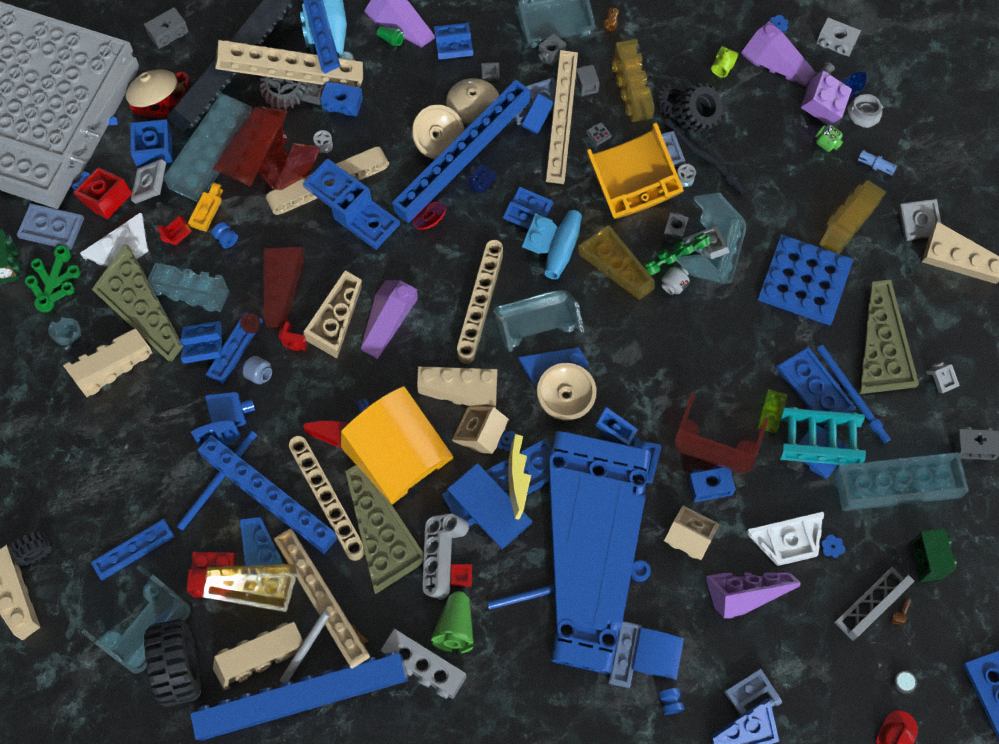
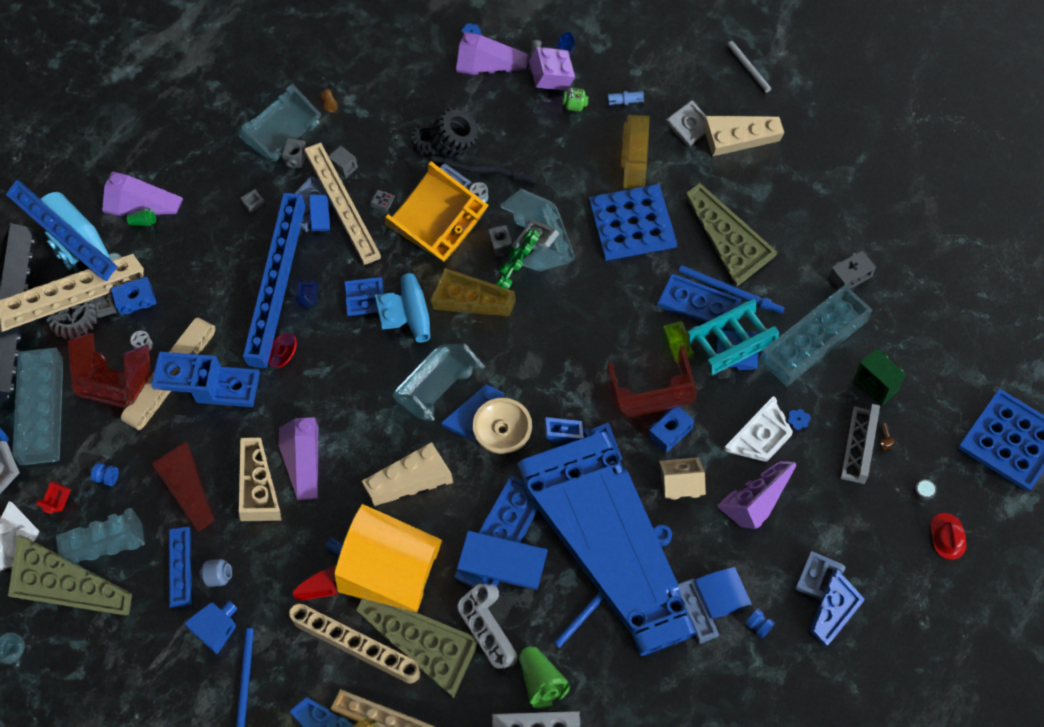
camera: 30 degrees left, 5 degrees down
(108, 362) = (70, 651): tan wedge -> none
(201, 342) = (146, 580): blue slope -> none
(206, 208) = (71, 461): light orange plate -> none
(223, 431) = (219, 646): blue slope -> none
(249, 147) = (78, 384): clear red wedge -> none
(250, 323) = (182, 536): clear red tile -> none
(267, 494) = (299, 673): blue brick -> none
(292, 340) = (229, 528): red bracket -> none
(439, 120) = (242, 265): tan dish -> none
(453, 41) = (201, 192): blue slope -> none
(461, 575) = (517, 634): red plate -> none
(469, 106) = (250, 241): tan dish -> none
(480, 309) = (379, 403): tan beam -> none
(481, 429) = (449, 501): tan slope -> none
(503, 444) = (476, 503): blue plant -> none
(517, 479) = (513, 523): light yellow slope -> none
(632, 81) = (383, 141): clear yellow wedge -> none
(675, 280) = (529, 282): light grey head -> none
(724, 62) = (448, 85): lime piece -> none
(838, 37) = (527, 16): light grey brick -> none
(865, 110) = (588, 62): light grey hat -> none
(944, 376) = (791, 234): light grey bracket -> none

